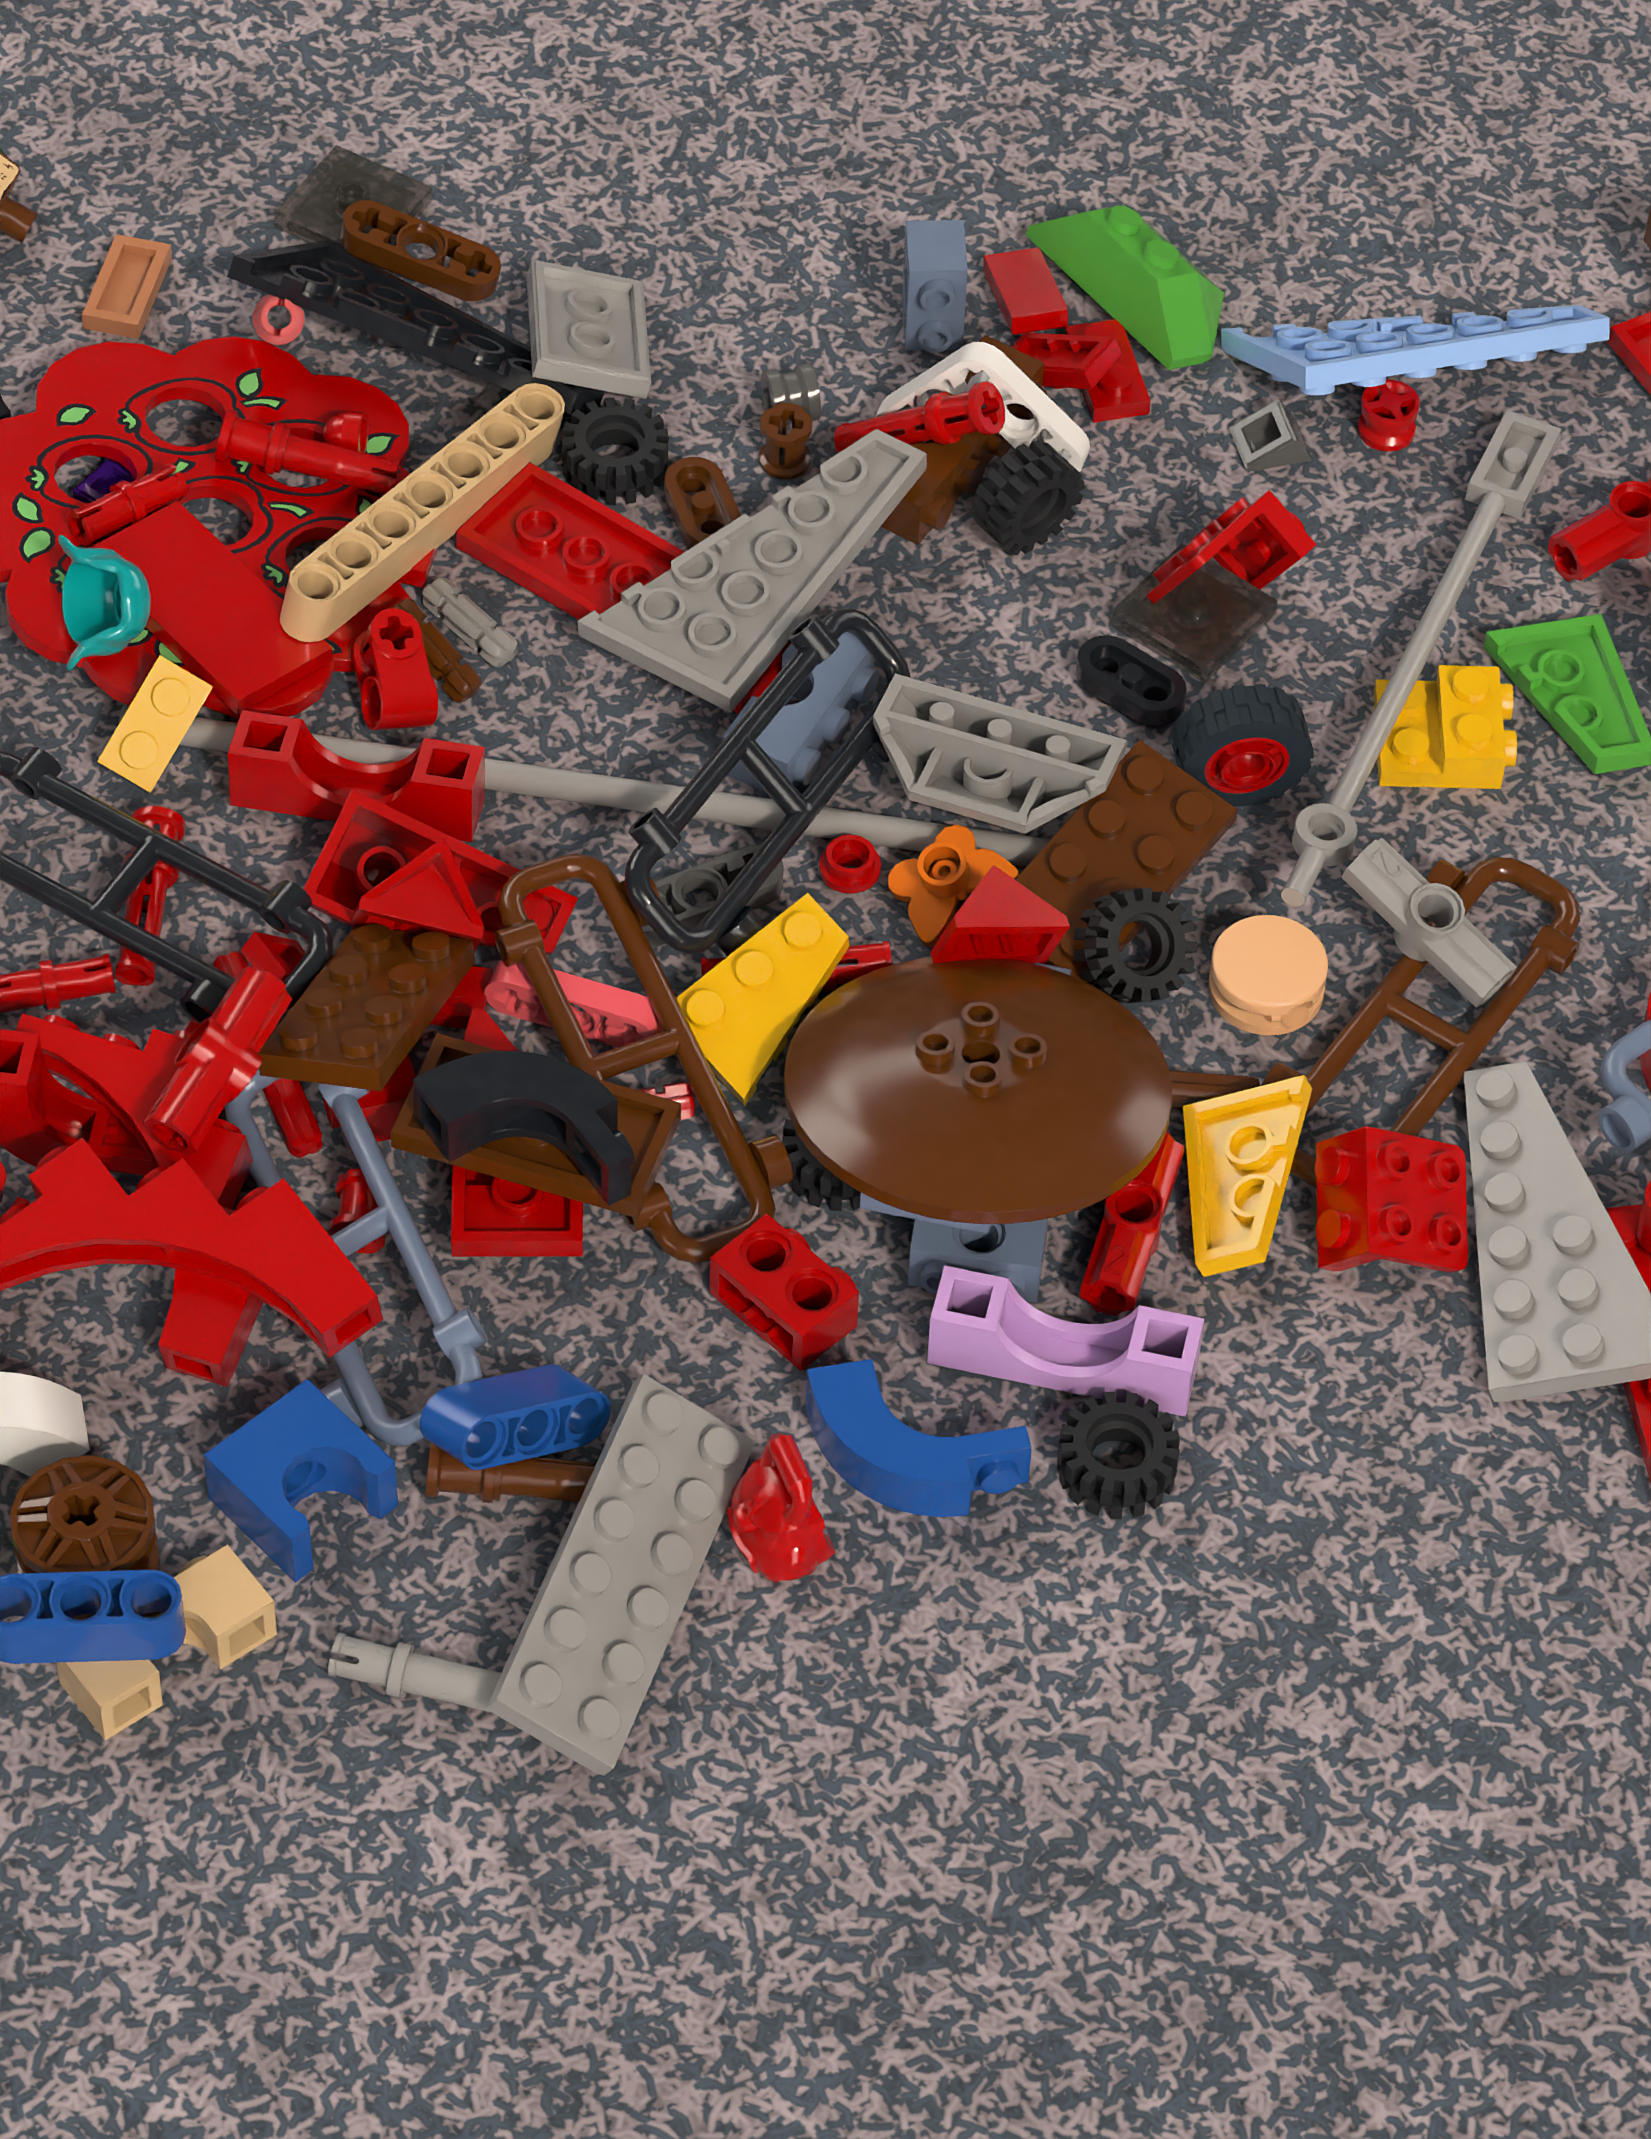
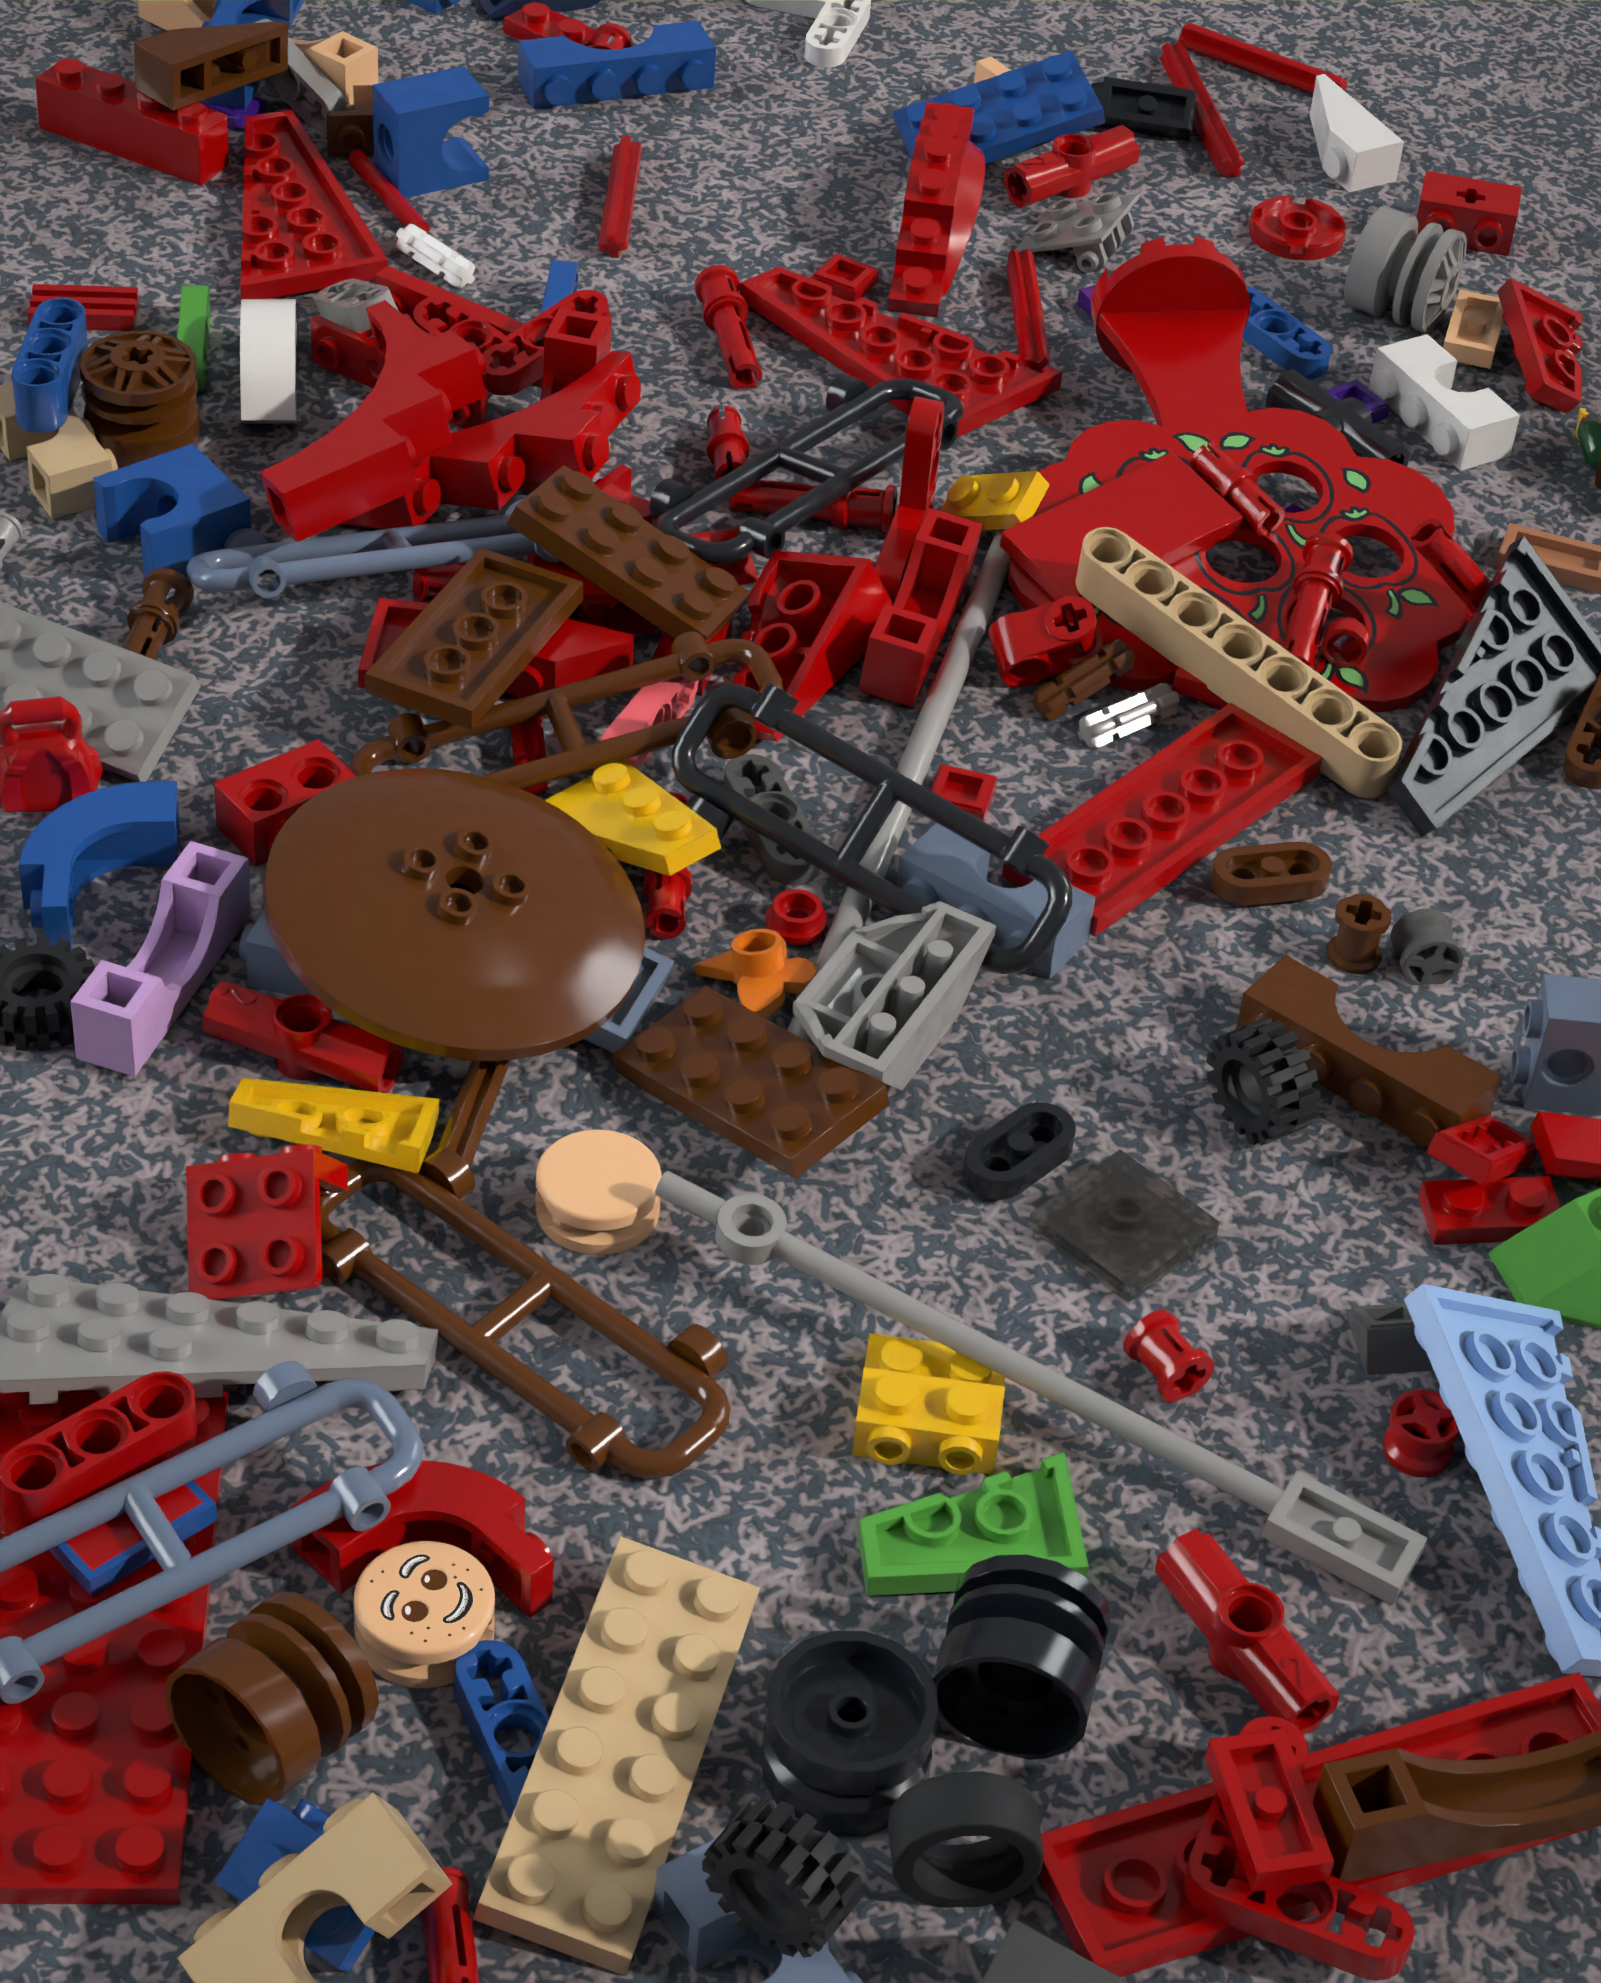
camera: 95 degrees right, 10 degrees down
(102, 601) = (1102, 449): teal hair -> none
(218, 1060) = (546, 427): red piece -> none
(258, 813) = (916, 490): none -> red beam
(424, 898) = (748, 606): red slope -> none
(515, 1416) = (182, 609): blue beam -> none
(529, 1097) = (459, 615): black arch -> none
(588, 329) = (1501, 808): light grey tile -> none
(615, 427) = (1354, 801): black tyre -> none
(622, 750) = (965, 789): none -> red tile
(744, 589) = (1156, 866): light grey wing -> none
(941, 418) = (1341, 1013): red pin -> none
(949, 375) = (1384, 1037): white beam -> none
(1001, 923) = (665, 950): red slope -> none
(1166, 938) = (656, 1086): black tyre -> none
(1244, 743) = (884, 1183): black wheel -> none
(1246, 539) = (1180, 1229): red bracket -> none
(1352, 572) = (1168, 1355): none -> red bush
(1403, 897) = (588, 1311): light grey piece -> none

